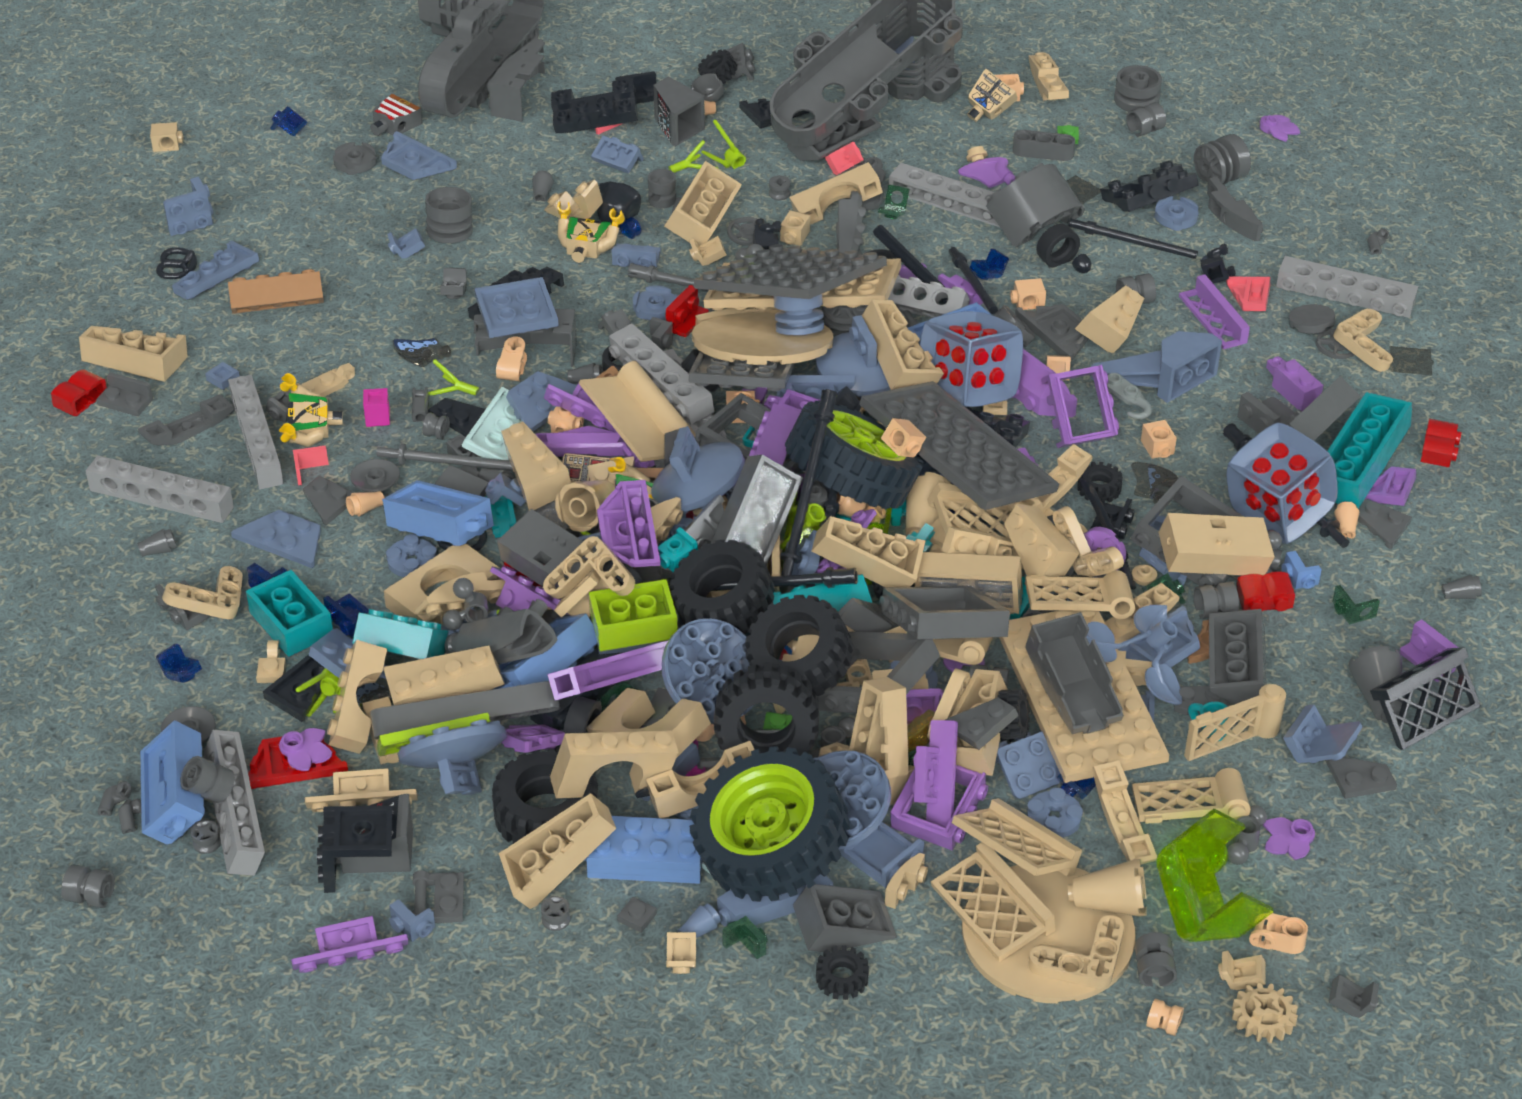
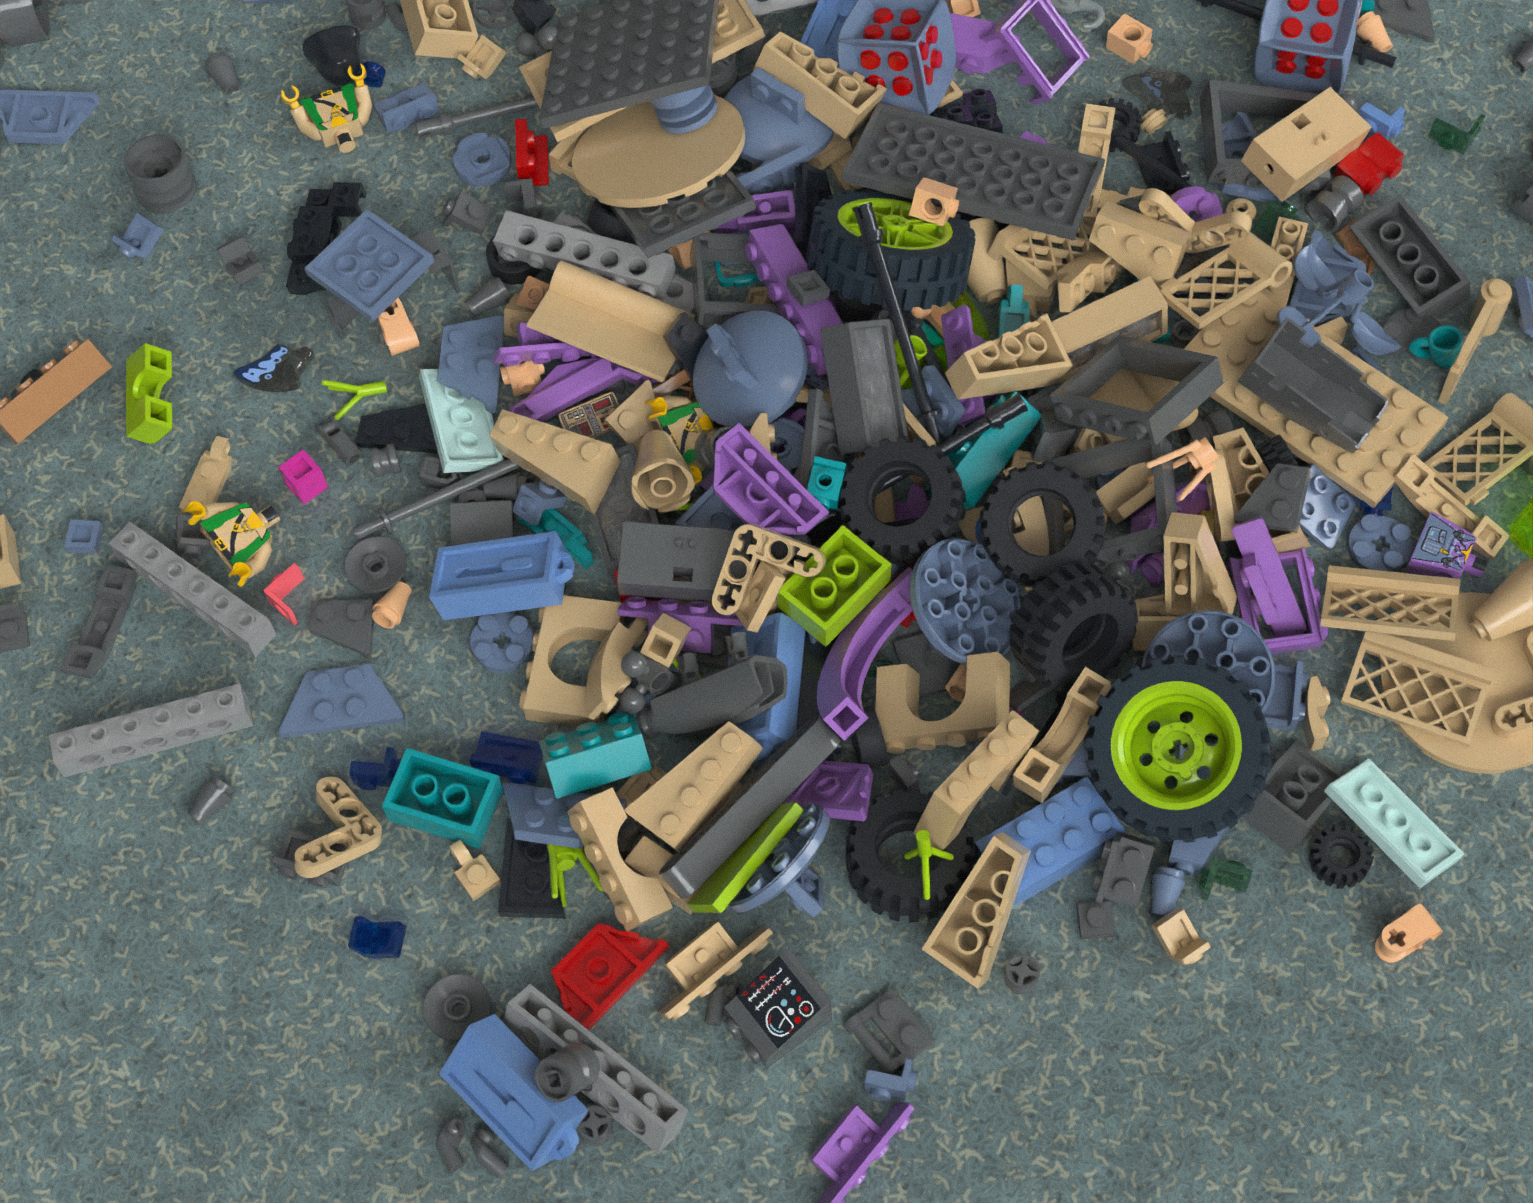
camera: 30 degrees left, 20 degrees up
(304, 748) = (616, 954): medium lavender plate -> none
(327, 323) = (146, 374): none -> lime arch
(341, 839) = (763, 1051): black bracket -> none
(500, 591) = (665, 640): none -> tan brick
(541, 781) = (925, 851): none -> lime plant
(583, 203) = (308, 79): tan slope -> none
(677, 888) = (1125, 869): none -> dark grey bracket
(772, 443) = (807, 287): none -> dark grey plate
(844, 1042) = (1409, 931): none -> light nougat piece
(899, 974) = (1394, 823): none -> light aqua tile
(945, 665) = (1199, 453): none -> light nougat plant
(1096, 837) = (1445, 551): none -> torso
(1130, 491) = (1153, 120): none -> tan plate

